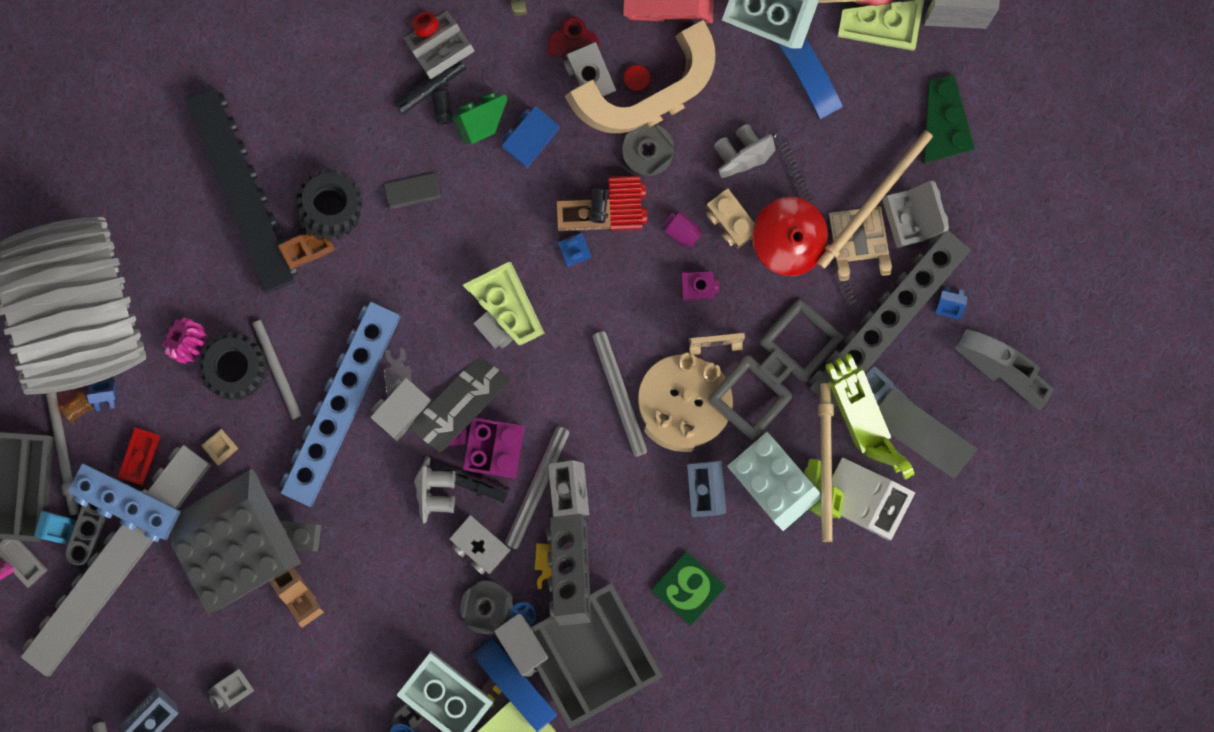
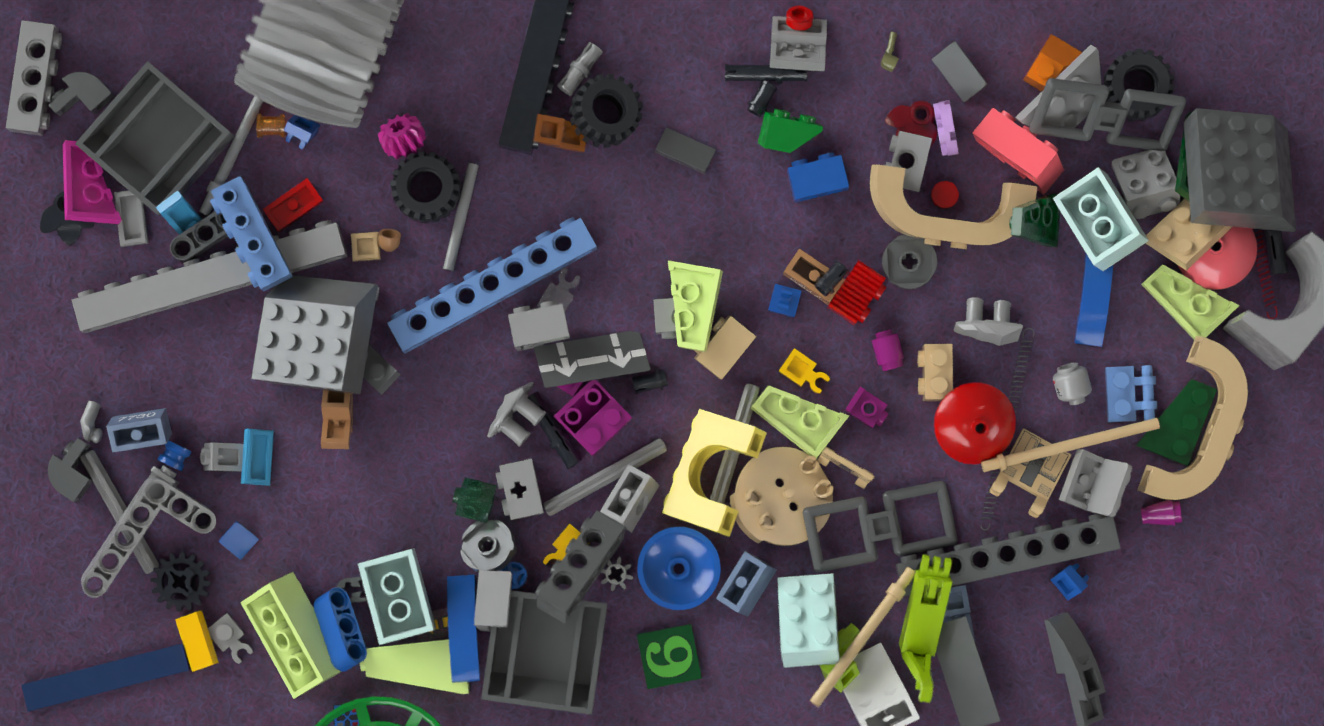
camera: 40 degrees right, 0 degrees up
(191, 718) = (174, 455): none -> blue wheel
(234, 428) = (389, 239): none -> medium nougat hinge
(256, 671) = (257, 457): none -> dark azure tile
(284, 187) = (580, 69): none -> light grey pin
(449, 579) = (474, 499): none -> clear green brick
(517, 388) = (650, 381): none -> black pin
(555, 318) = (725, 346): none -> tan brick
(593, 398) = (708, 436): none -> light yellow arch
(600, 26) = (945, 128): none -> lavender plate
(608, 552) = (614, 582): none -> light grey gear
(624, 293) = (800, 369): none -> yellow plate
(650, 495) = (699, 562): none -> blue dish
(654, 333) = (799, 420): none -> yellowish green wing
(723, 46) = (1037, 221): none -> dark green wing
(841, 151) = (1072, 383): none -> light grey head
(885, 132) = (1121, 393): none -> medium blue plate
(980, 103) = (1218, 438): none -> tan arch
(983, 199) = (1162, 513): none -> magenta cone

